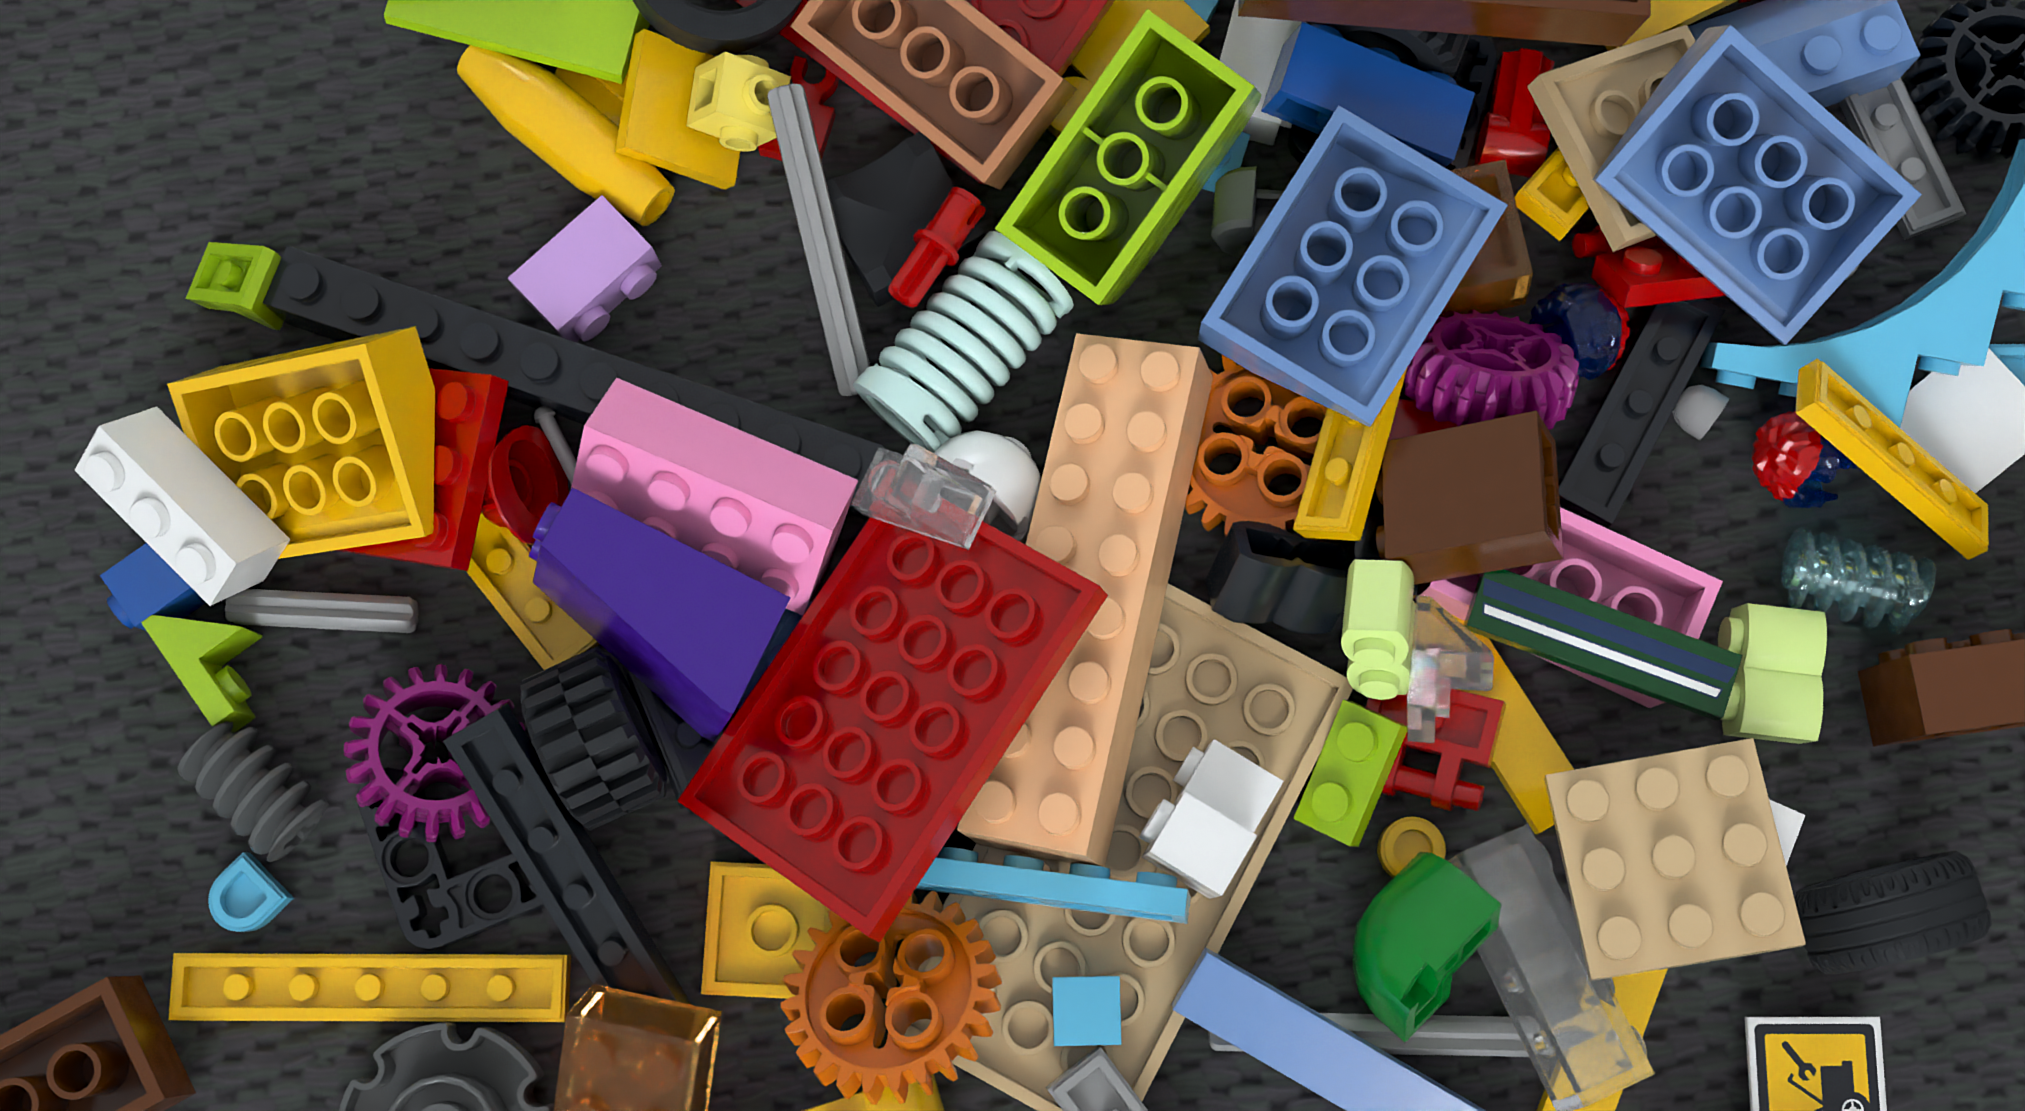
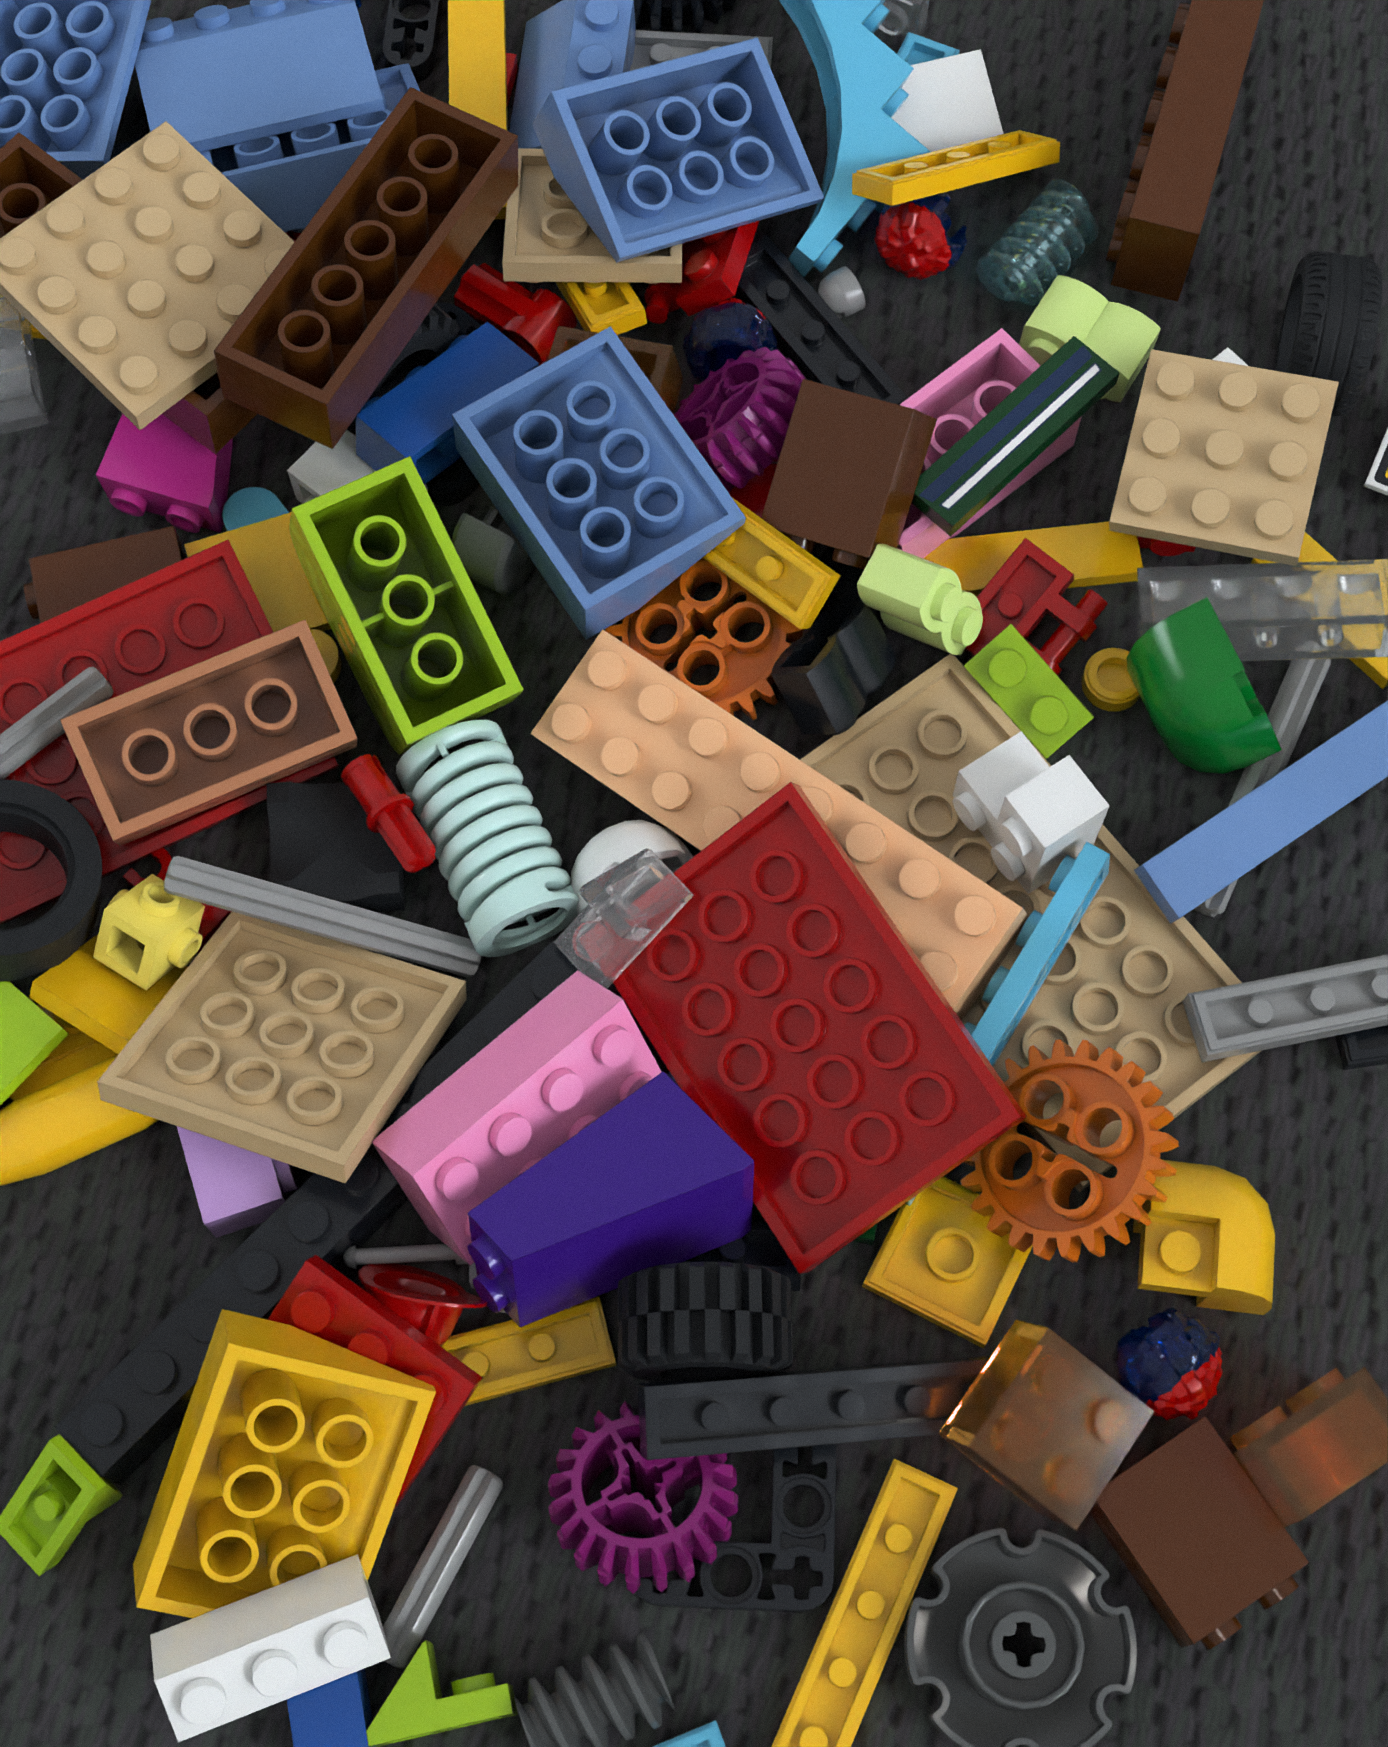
camera: 65 degrees left, 10 degrees down
(683, 267) = (285, 1044): none -> tan plate
(1086, 1010) = (1148, 995): medium azure tile -> none
(1442, 660) = (977, 558): clear slope -> none

